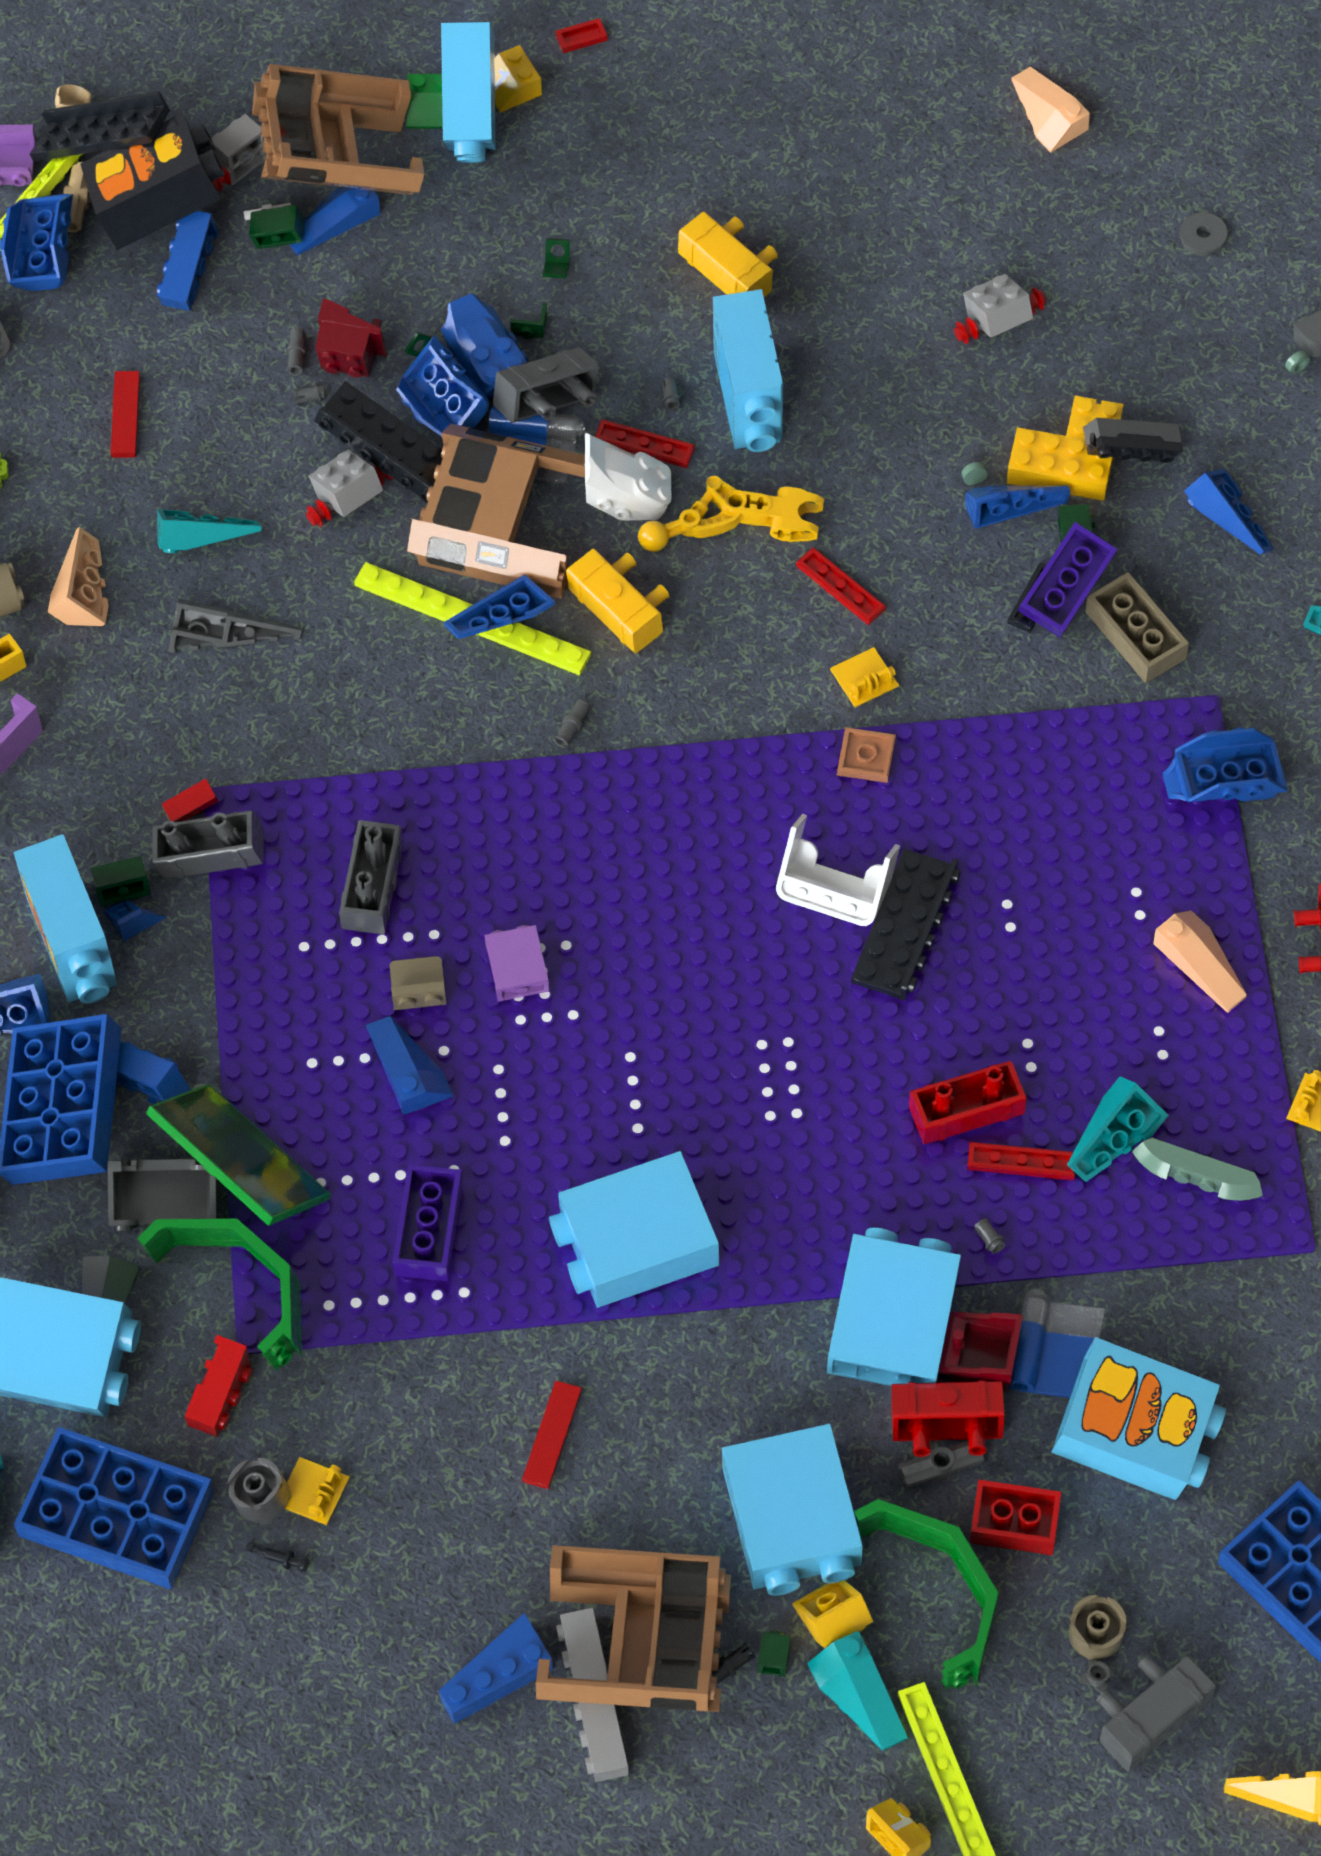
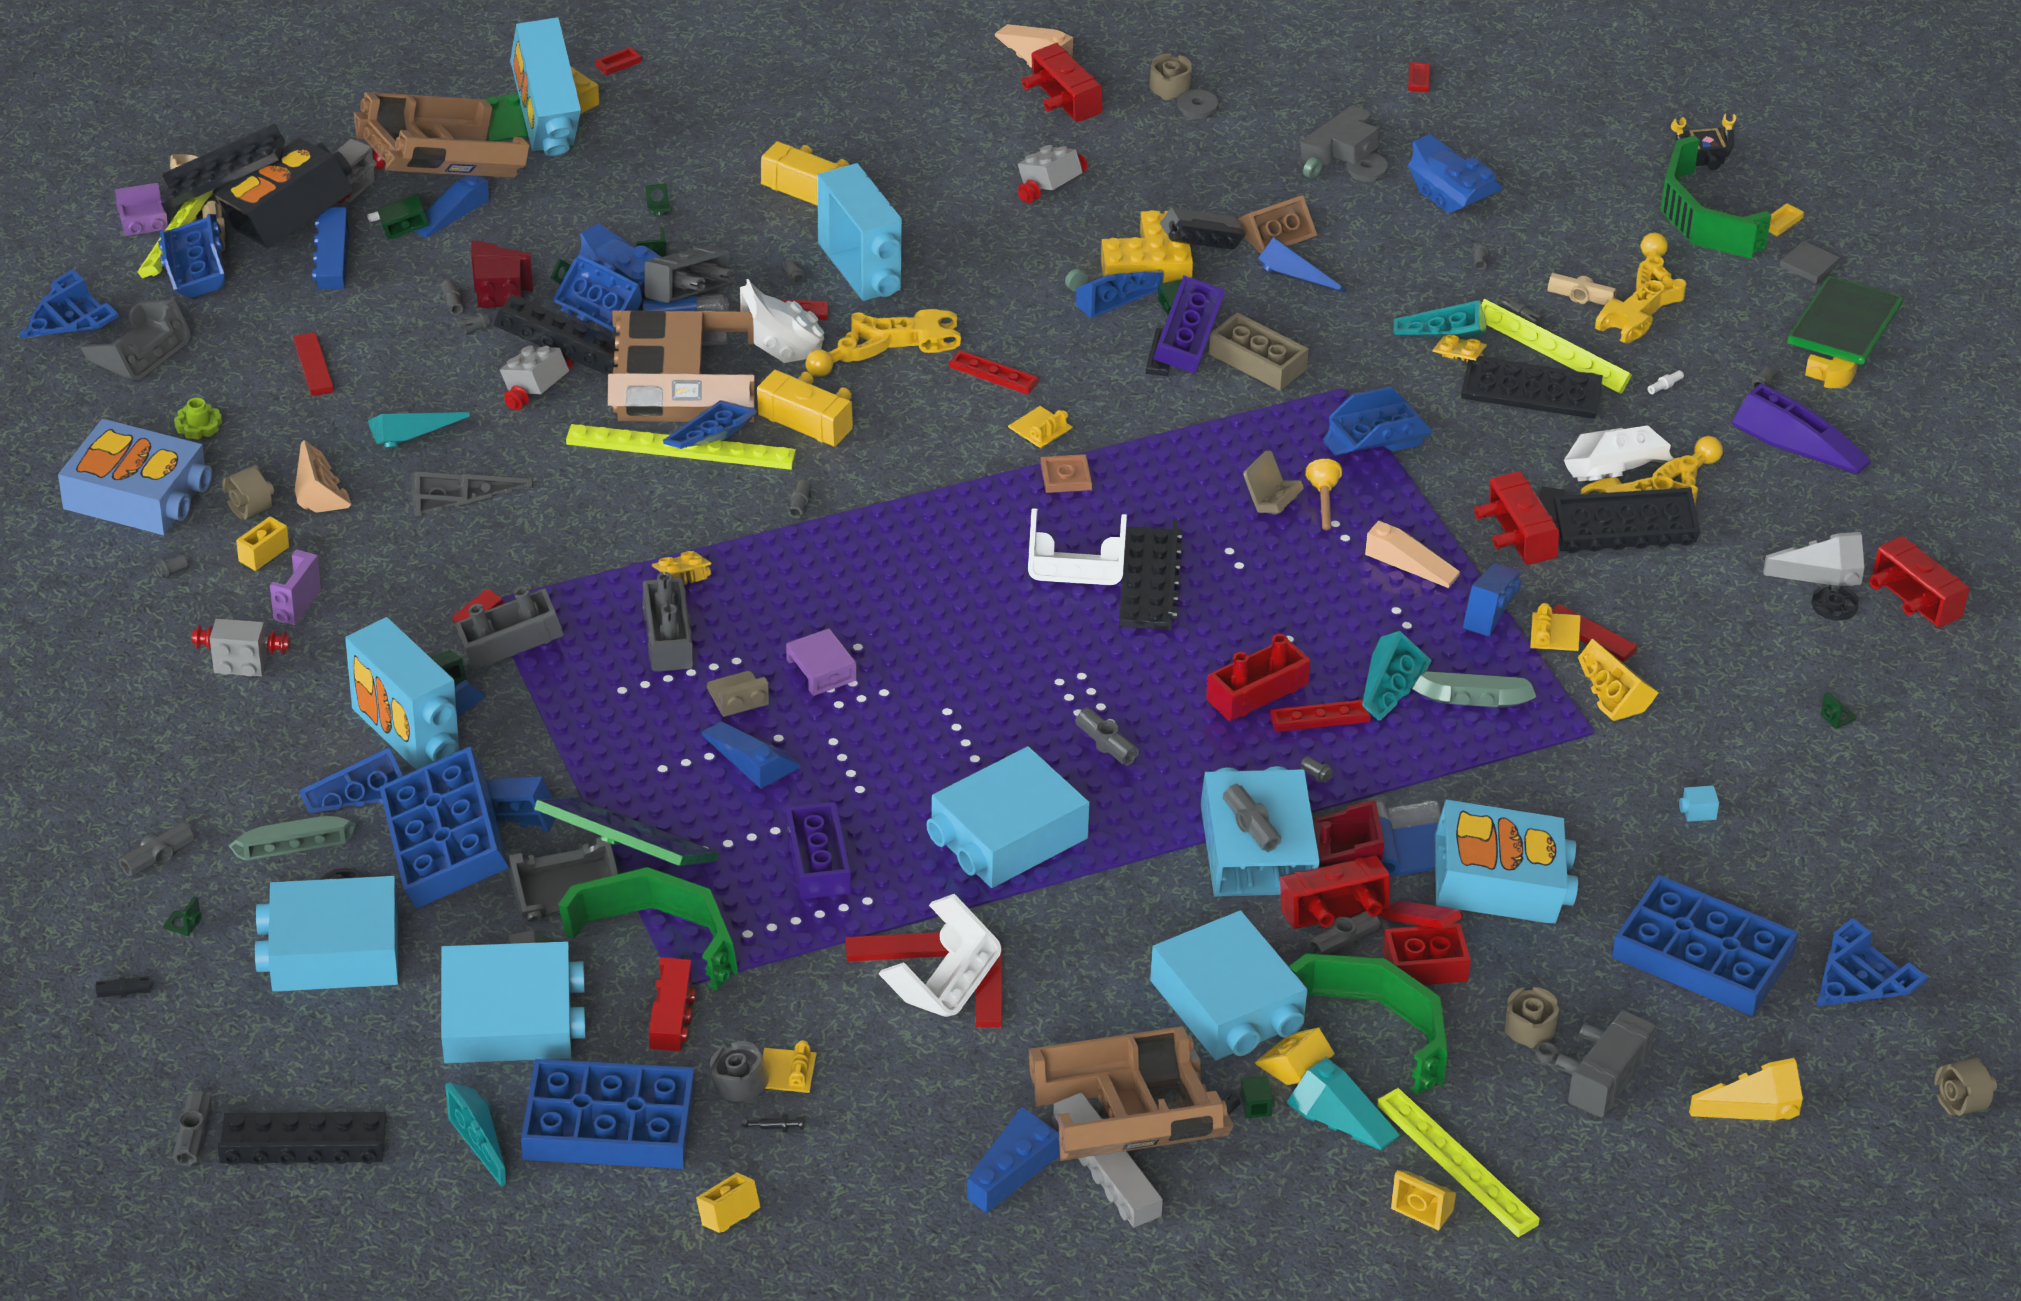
camera: 20 degrees left, 20 degrees down
(196, 1652) = (728, 1202): none -> yellow brick
(413, 794) = (688, 562): none -> yellow hinge
(476, 1358) = (894, 947): none -> red tile
(522, 1414) = (969, 959): none -> white windscreen
(785, 1151) = (1107, 736): none -> dark grey piece
(879, 1310) = (1252, 817): none -> dark grey piece
(1025, 1468) = (1421, 914): none -> red tile
(1060, 178) = (1065, 83): none -> red piece
(1076, 831) = (1267, 486): none -> dark tan bracket
(1140, 831) = (1324, 475): none -> yellow piece
(1183, 191) = (1170, 76): none -> dark tan brick
(1227, 441) = (1284, 221): none -> medium nougat slope
(1264, 1045) = (1490, 598): none -> blue wedge

